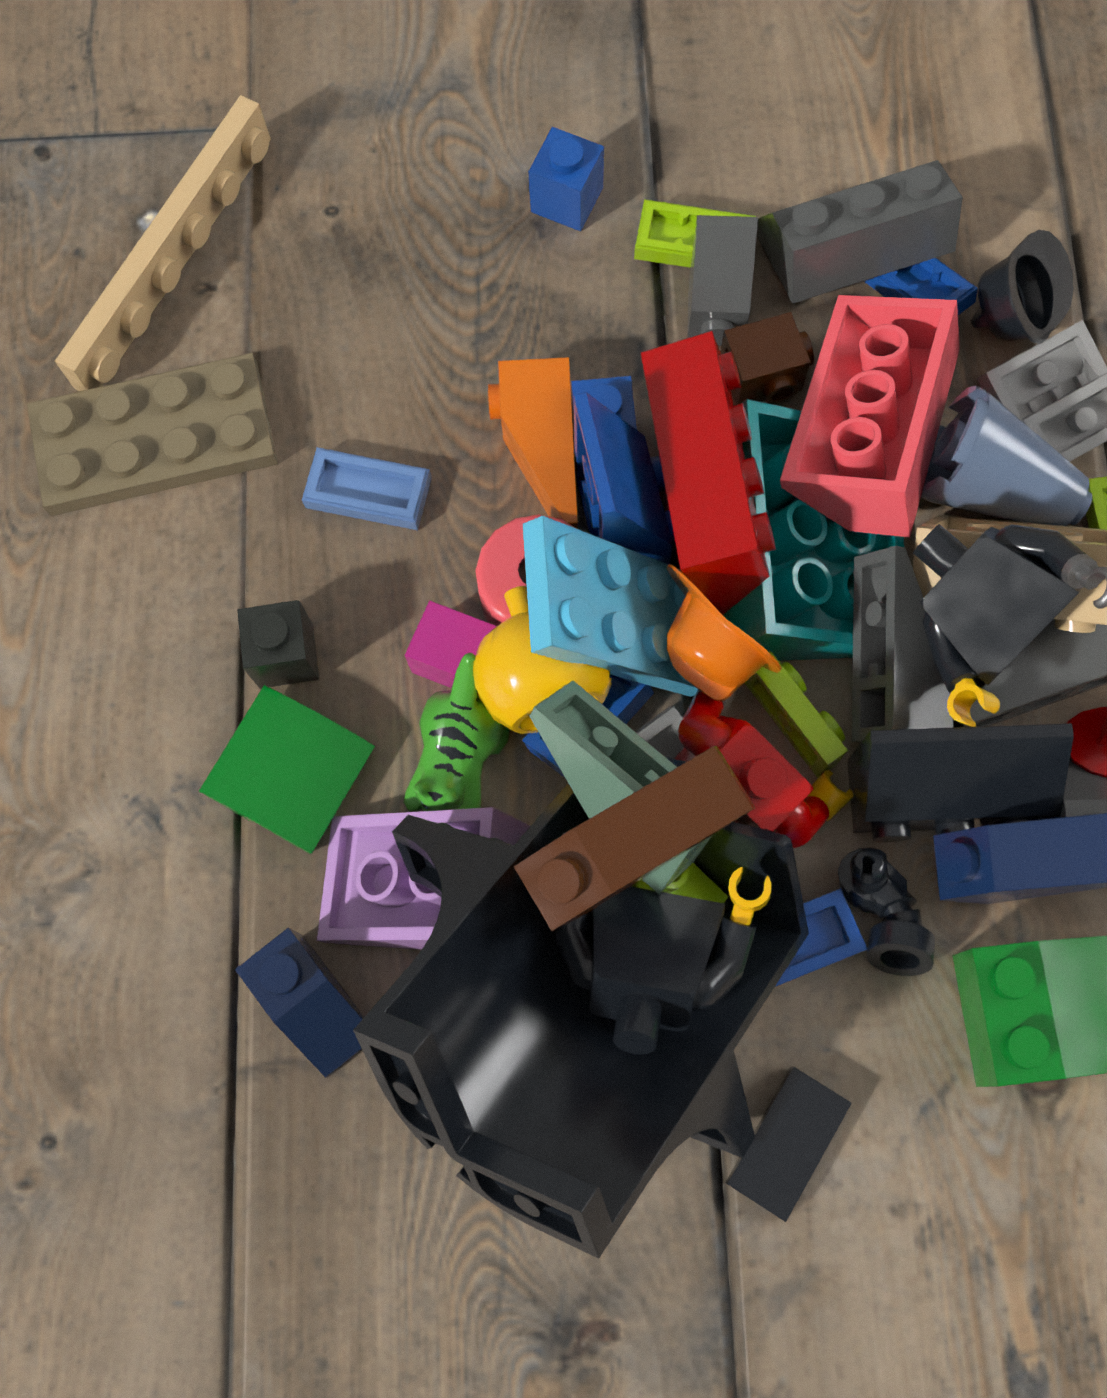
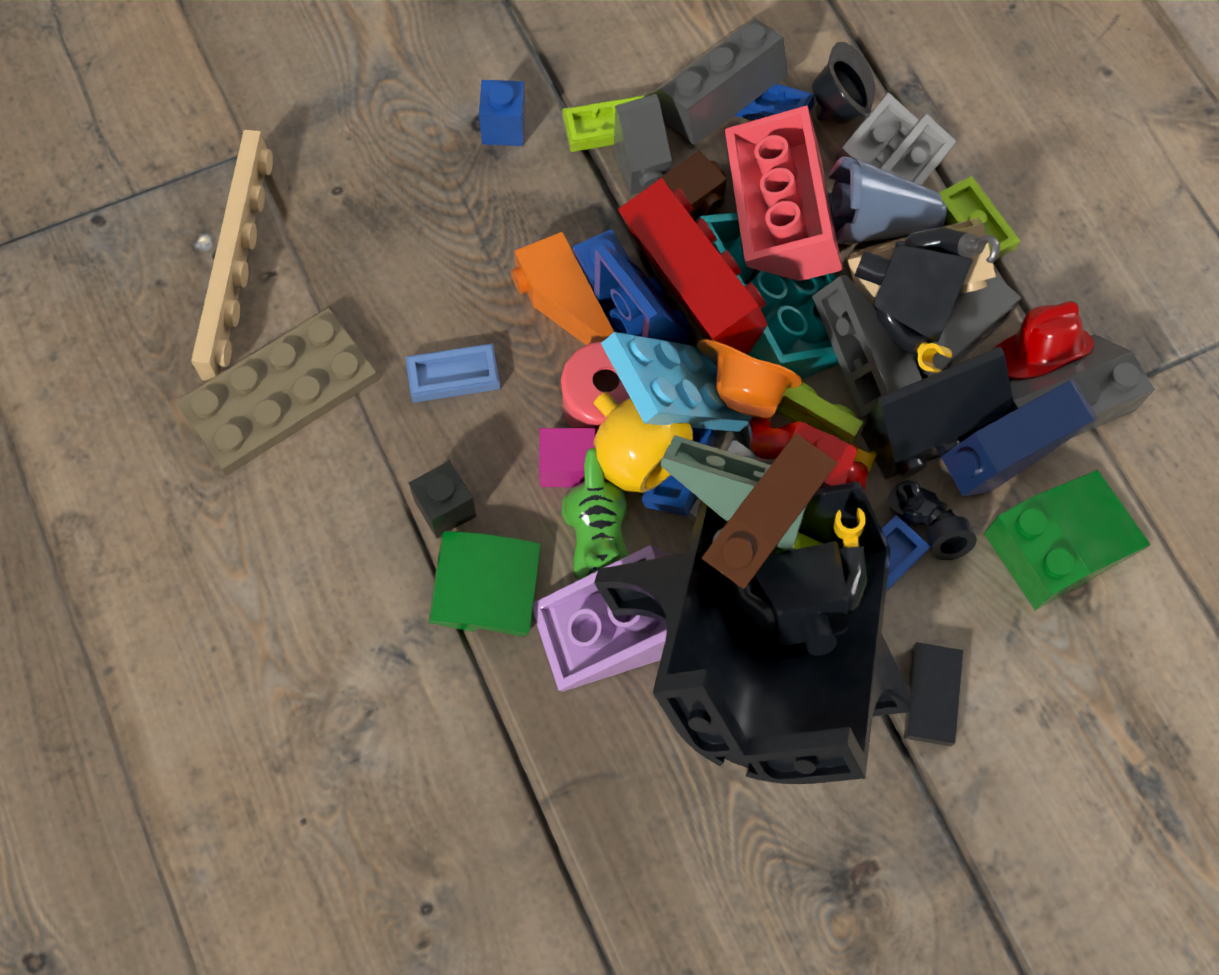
camera: 30 degrees left, 5 degrees down
(304, 1000) = (573, 731): dark blue slope -> none

